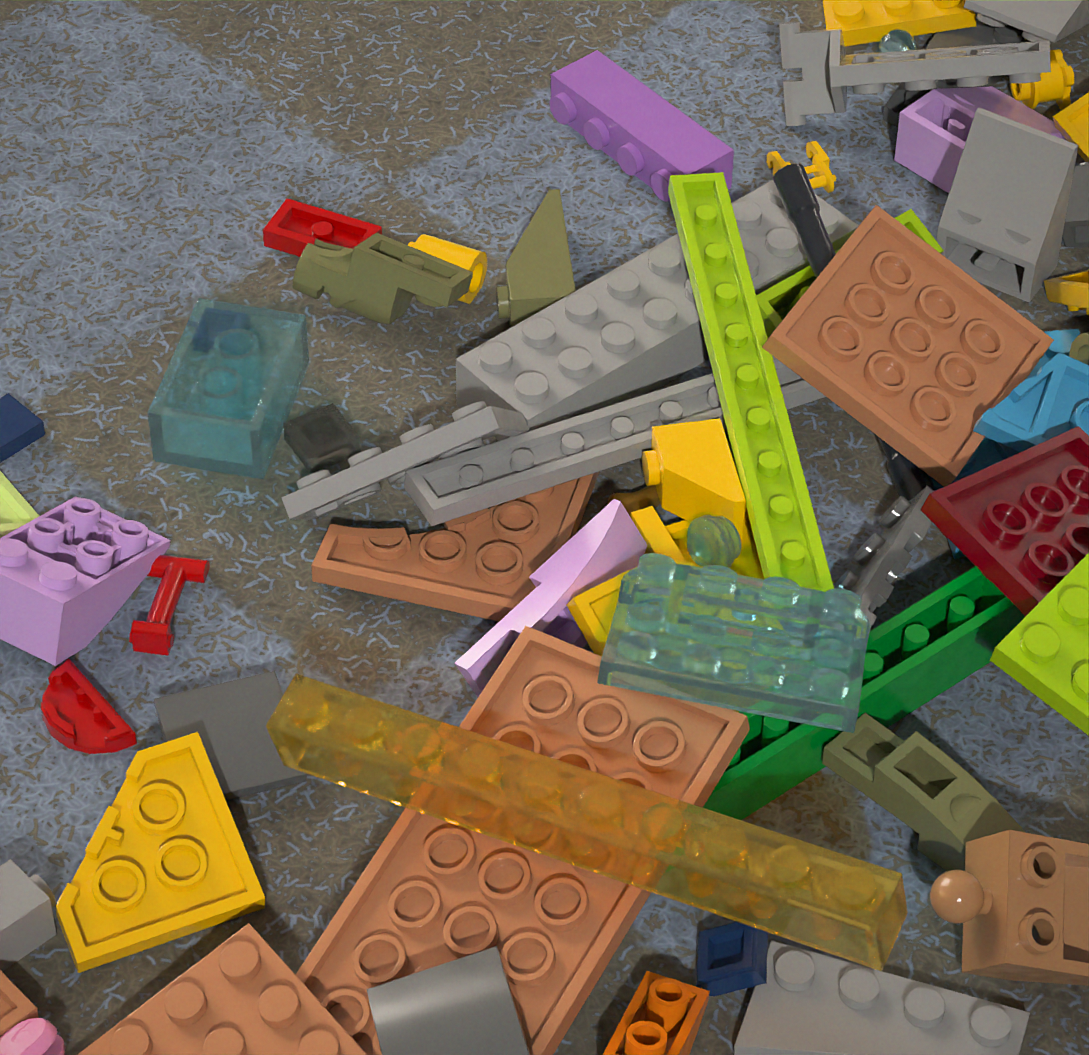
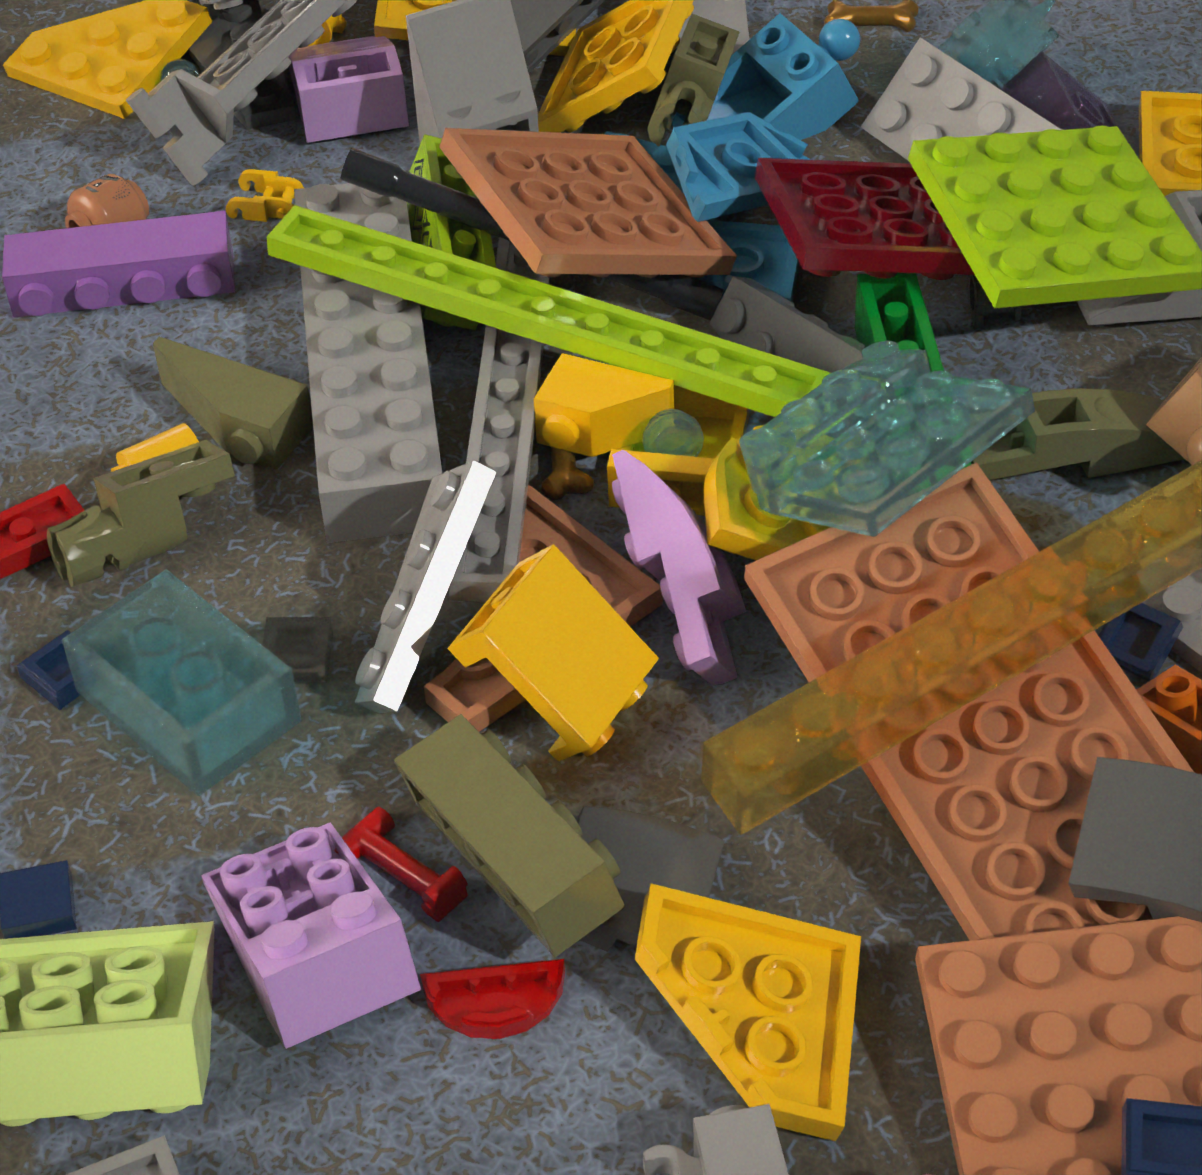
camera: 55 degrees left, 0 degrees up
(204, 635) = (512, 834): none -> olive brick
(392, 576) = (560, 650): none -> yellow panel
(690, 88) = (106, 202): none -> nougat head

